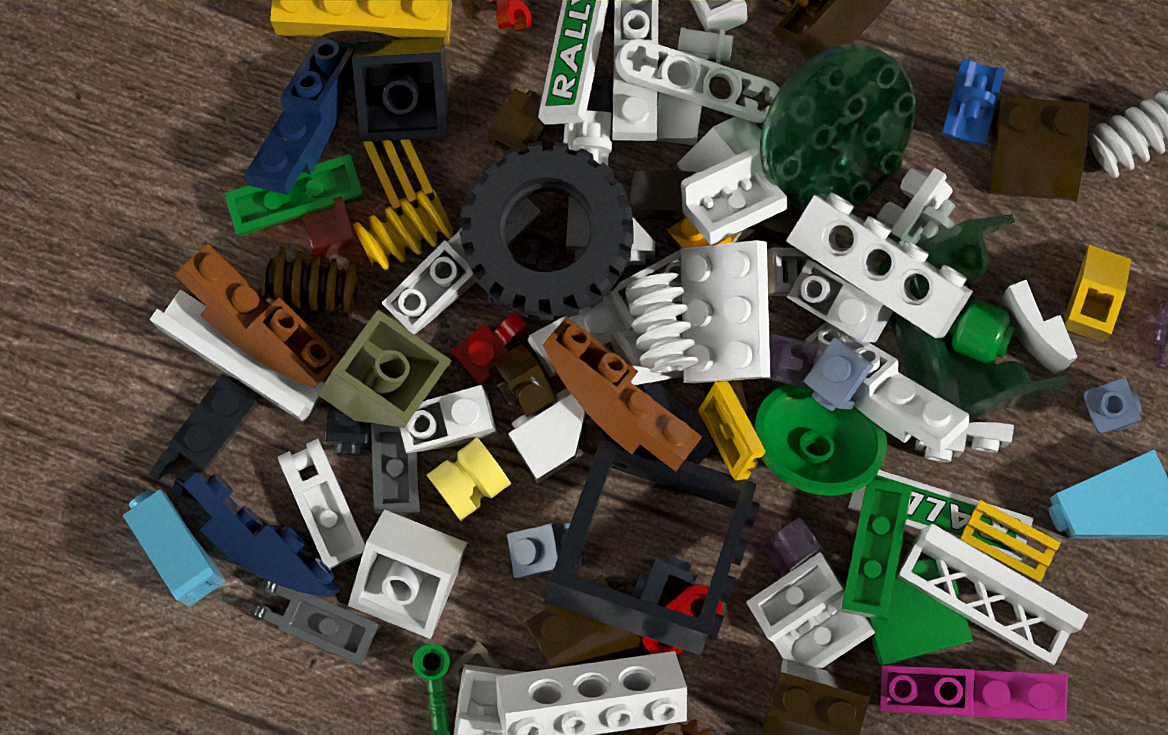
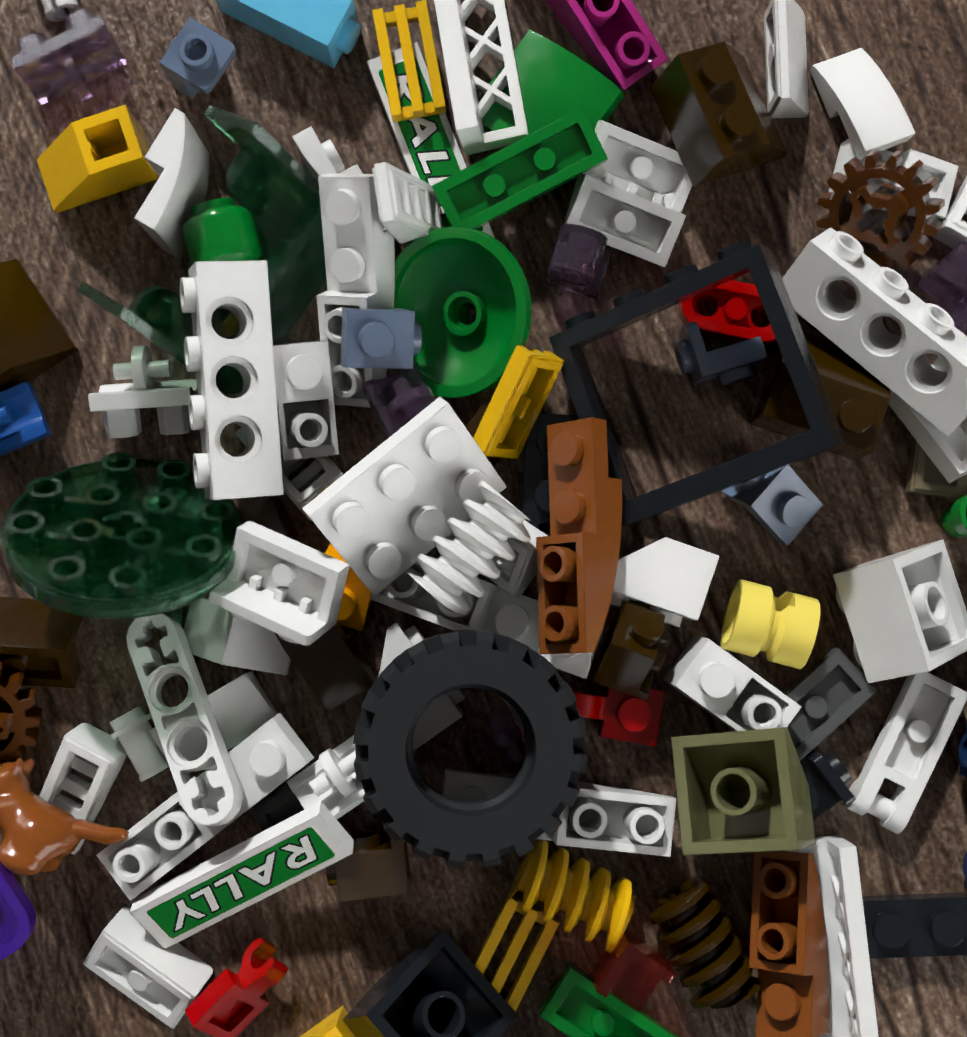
camera: 130 degrees left, 5 degrees up
(909, 457) = (405, 204): none -> white slope

